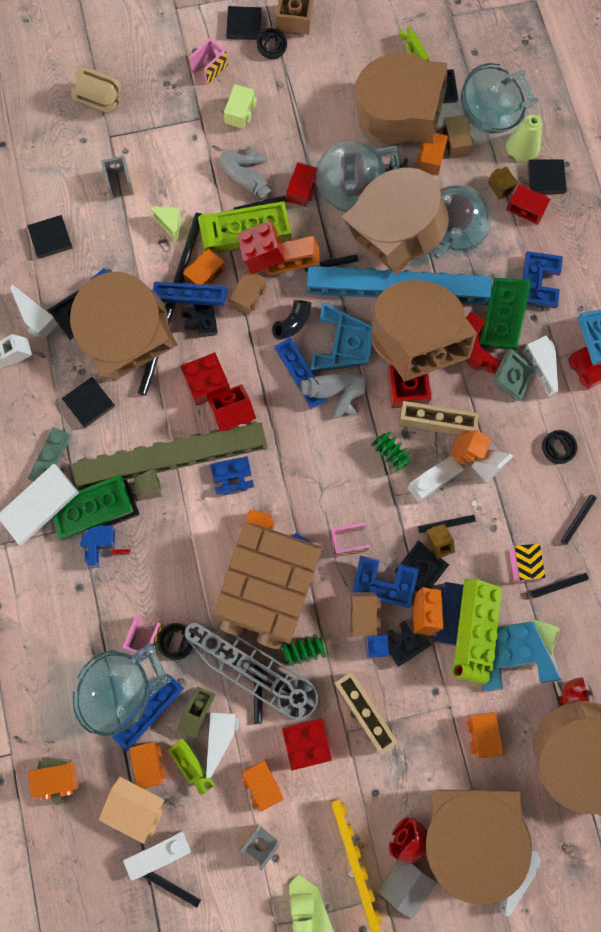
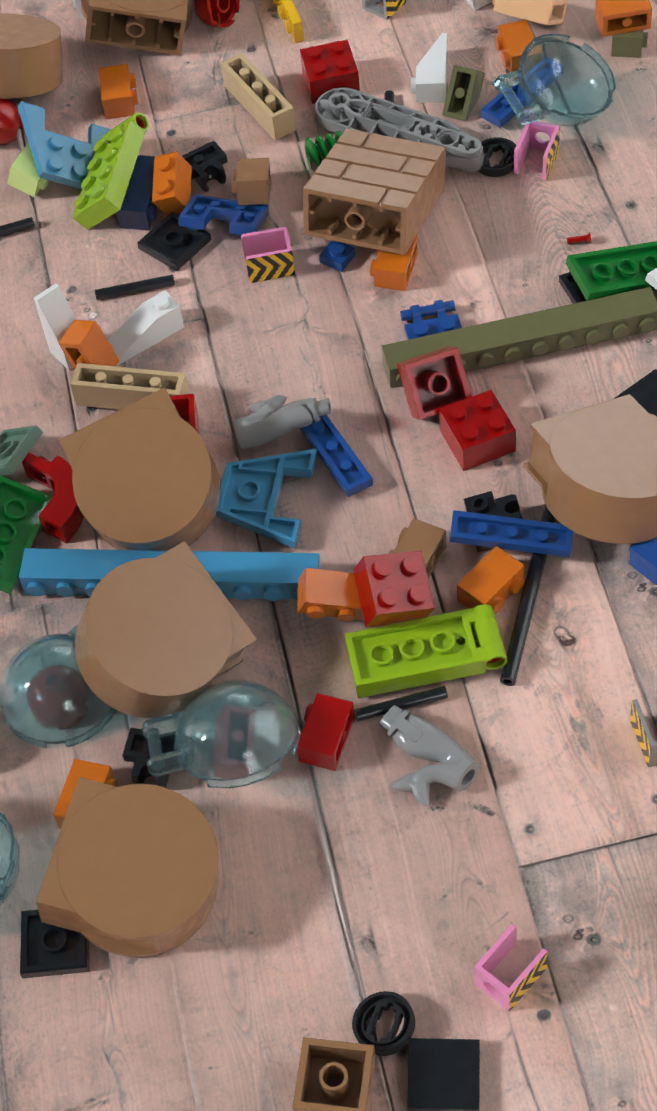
camera: 170 degrees left, 20 degrees down
(95, 539) = (611, 236): blue brick -> none
(147, 486) = (548, 290): olive slope -> none
(169, 219) = (560, 663): yellowish green slope -> none
(190, 766) = (467, 50): lime plate -> none
(239, 106) = (442, 870): yellowish green brick -> none
(262, 785) = (381, 39): orange brick -> none
(294, 322) = (343, 514): black cylinder -> none
(337, 261) = (270, 614): black bar -> none
(377, 646) = (235, 149): blue brick -> none
(392, 451) = (201, 354): green piece -> none
(413, 44) = (93, 1016): lime plate -> none
(440, 541) = (146, 257): pearl gold brick -> none
(459, 140) = (34, 827): medium nougat brick -> none
(527, 563) = (35, 240): piece -> none

